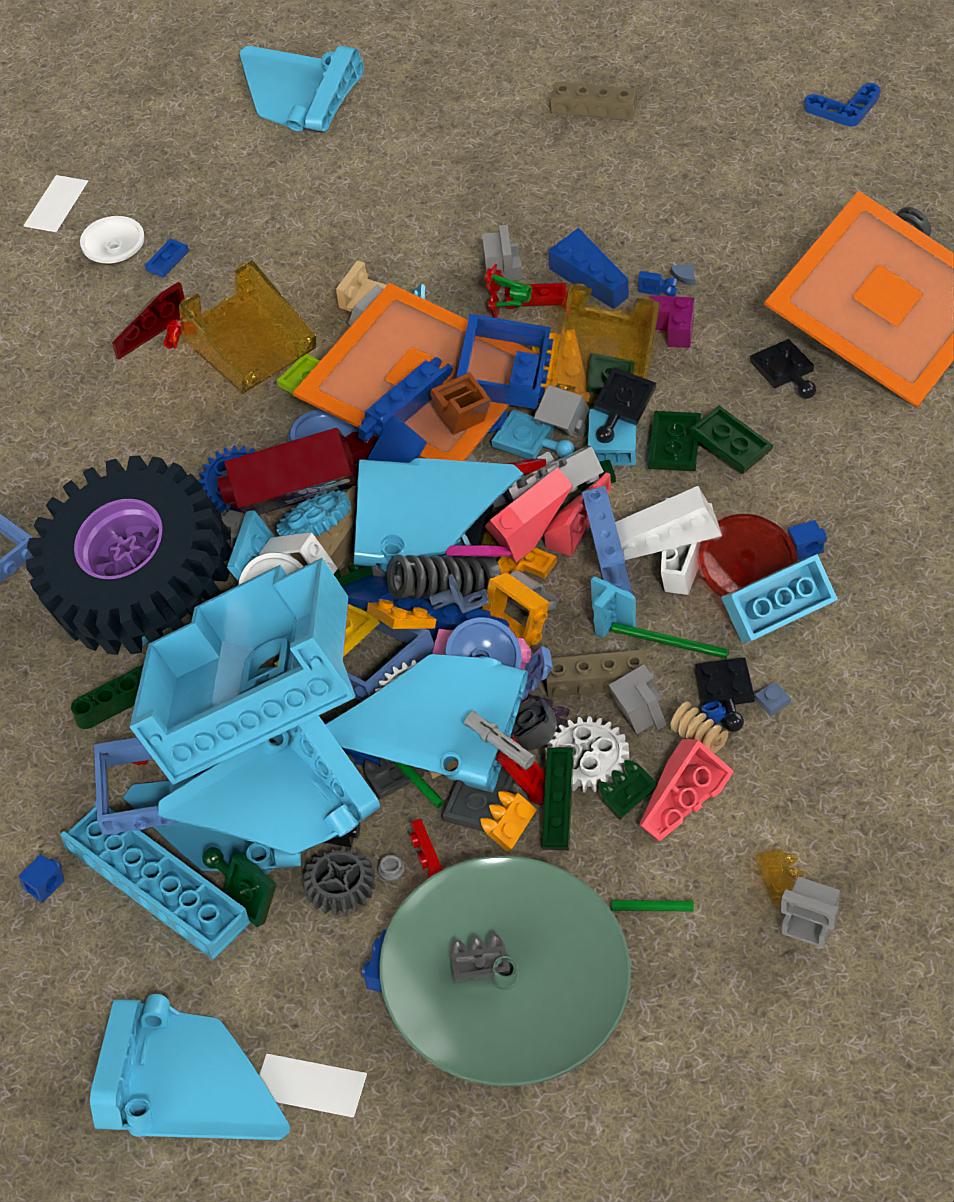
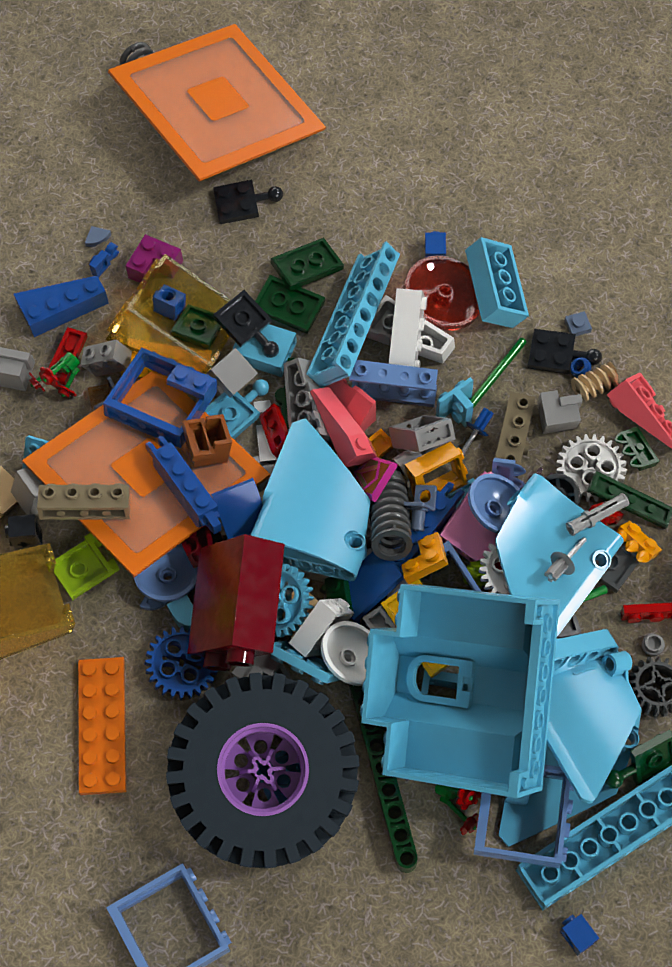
camera: 75 degrees left, 15 degrees up
(170, 442) = (102, 726): none -> orange plate
(325, 322) = (23, 532): none -> black brick
(355, 332) = (83, 501): none -> dark tan brick
(422, 718) = (562, 563): none -> light grey piece
(539, 312) = (106, 358): none -> light grey brick
(547, 576) = (422, 434): none -> light grey window
(591, 638) = (478, 427): none -> blue piece
(626, 342) = (169, 302): none -> blue brick
(671, 479) = (353, 316): none -> medium azure tile

